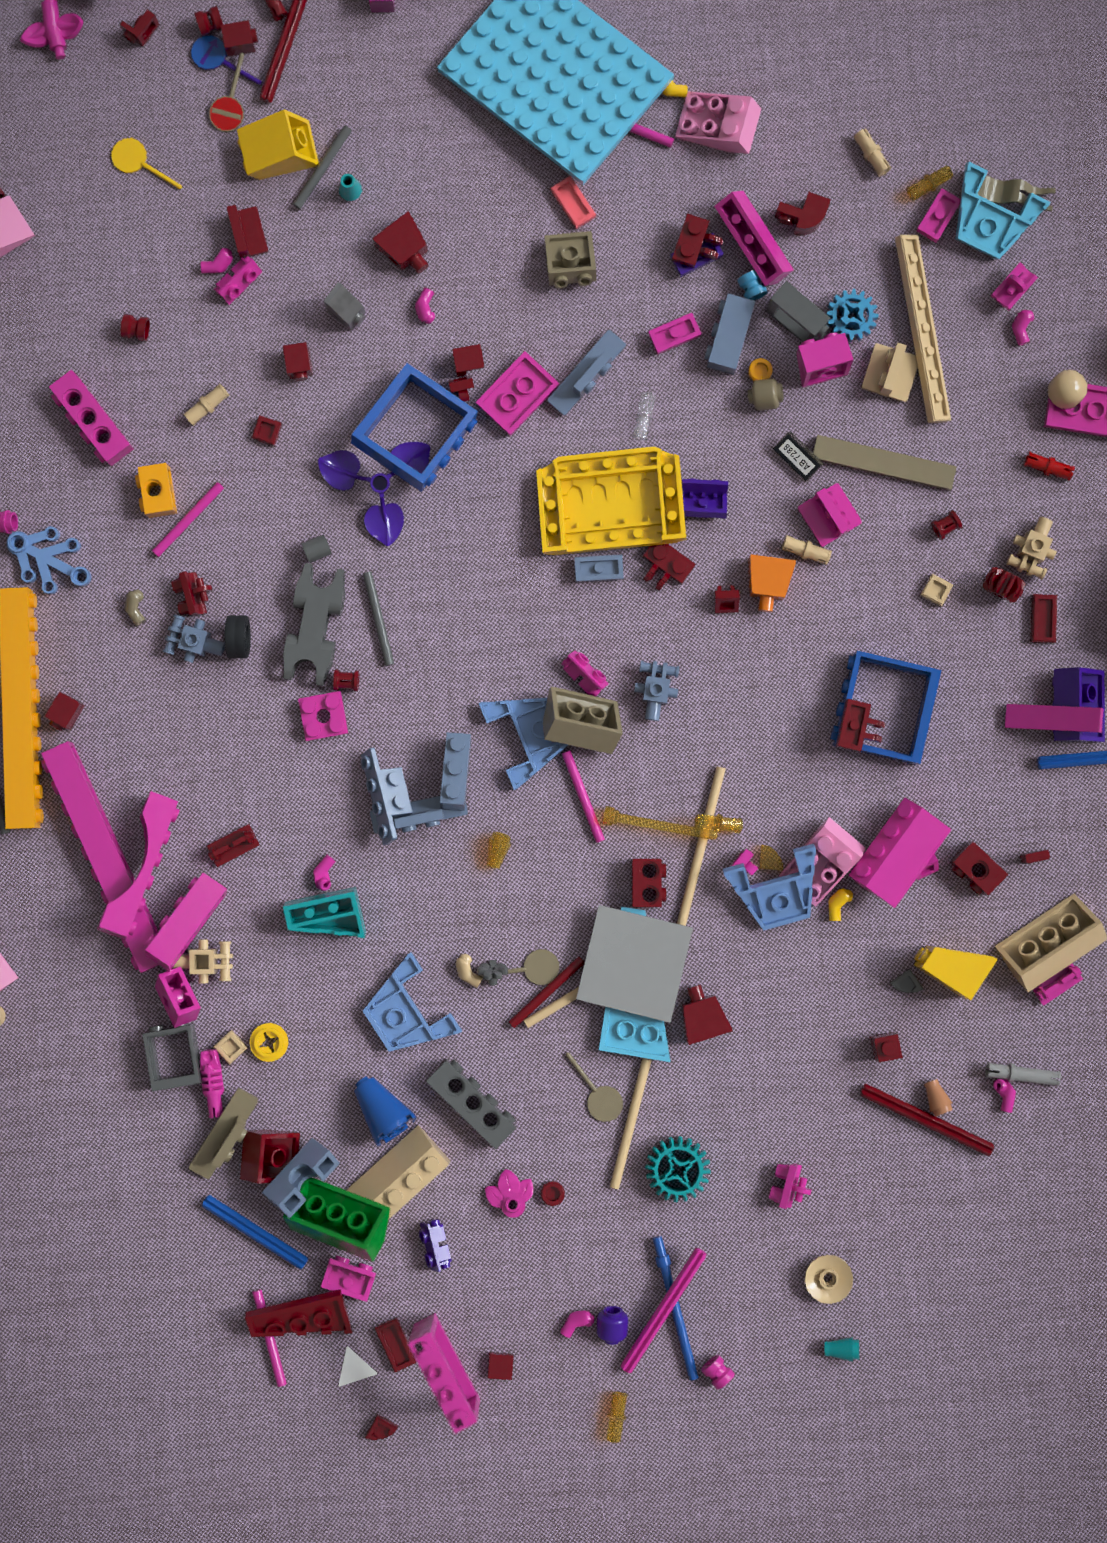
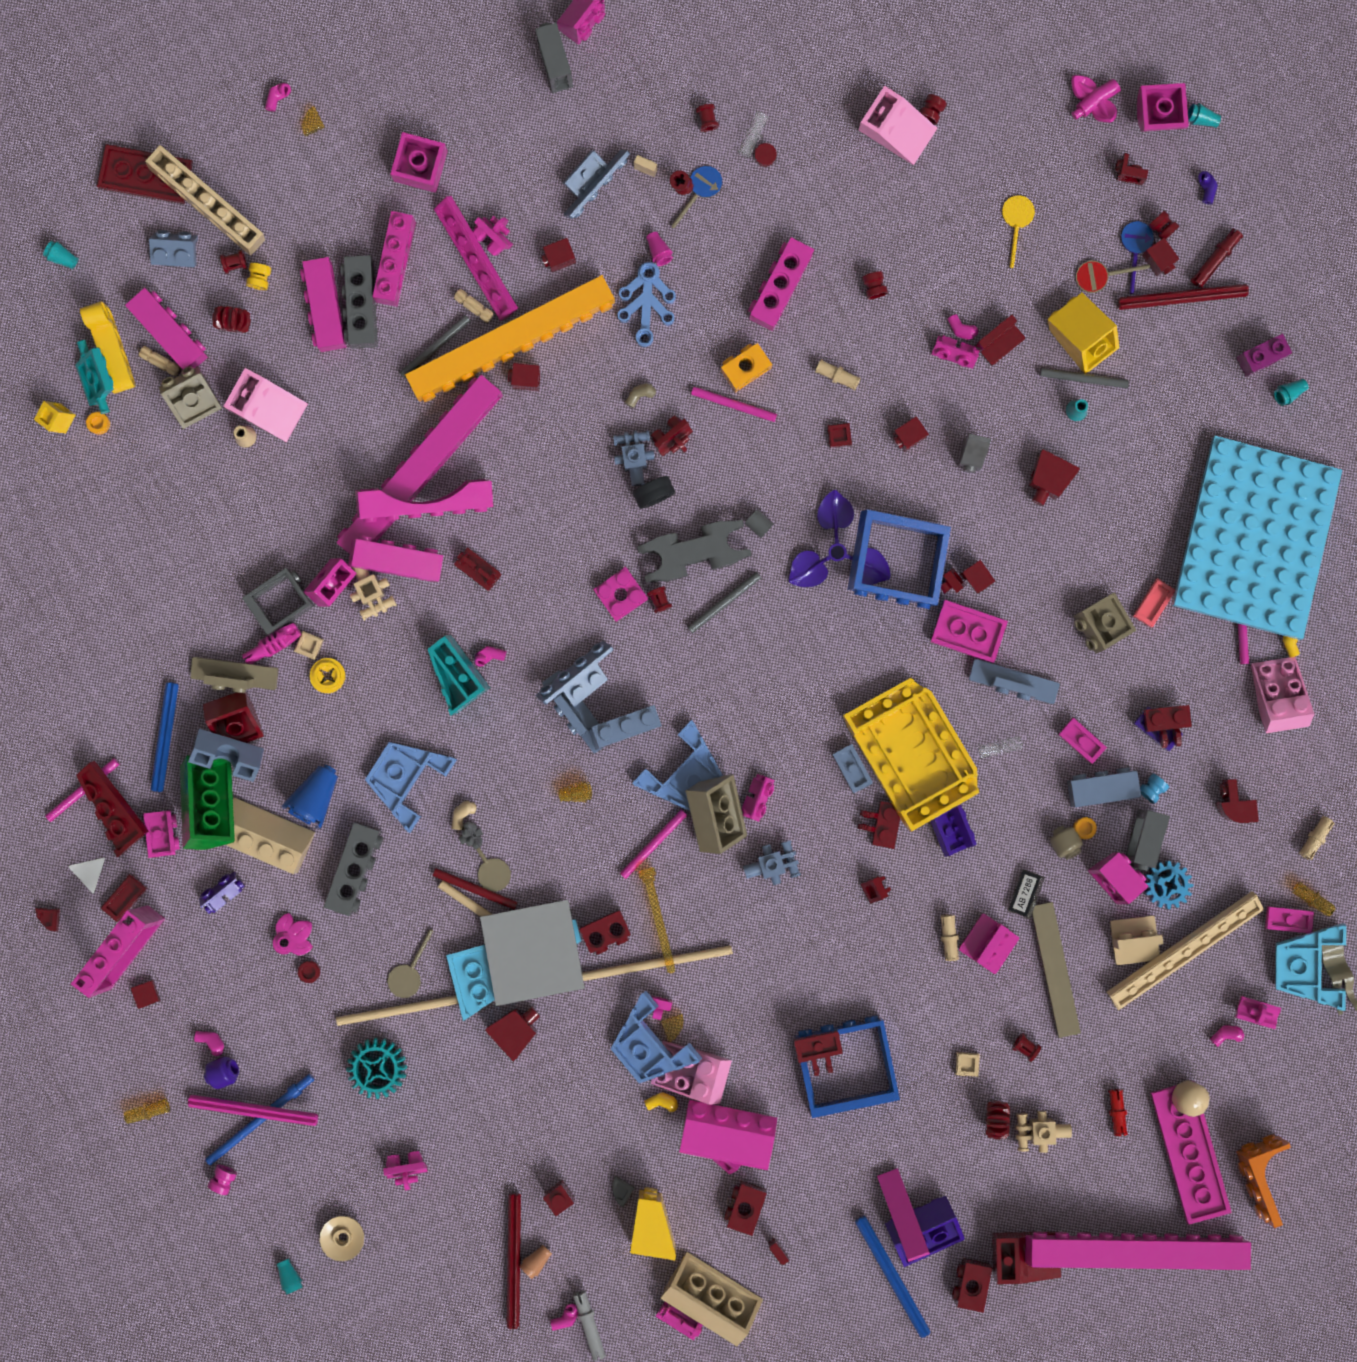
camera: 60 degrees right, 0 degrees up
(422, 306) = (1005, 517): dark pink arm -> none
(718, 823) = (683, 969): clear yellow axle -> none
(754, 238) = (1195, 771): dark pink brick -> none
(769, 579) = (909, 917): orange torso -> none
(1043, 618) = (985, 1167): dark red tile -> none

